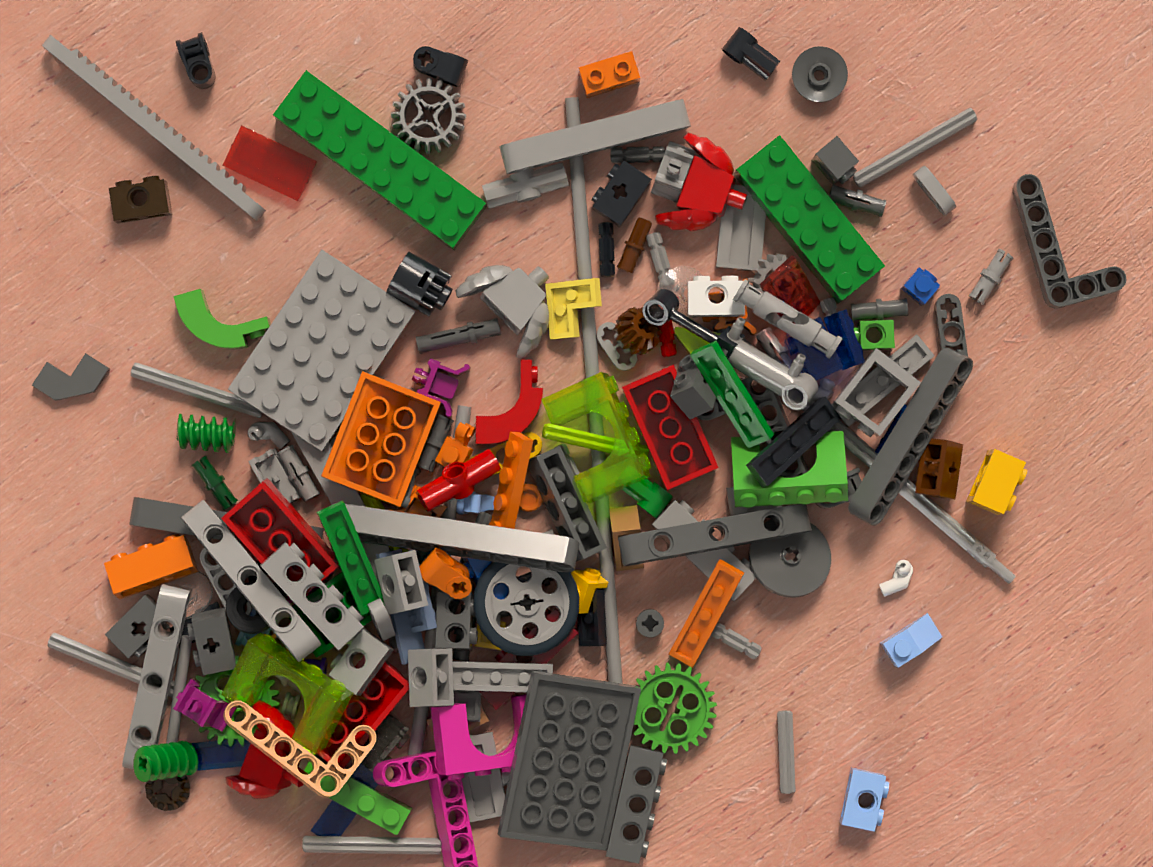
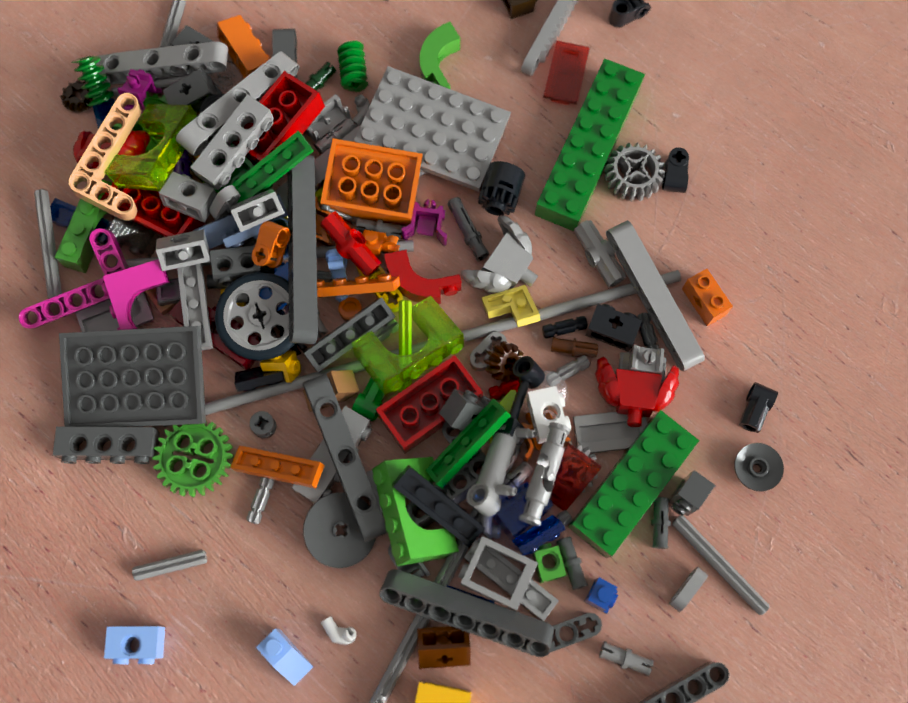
camera: 75 degrees right, 15 degrees down
(193, 389) = (385, 46): light grey axle -> none

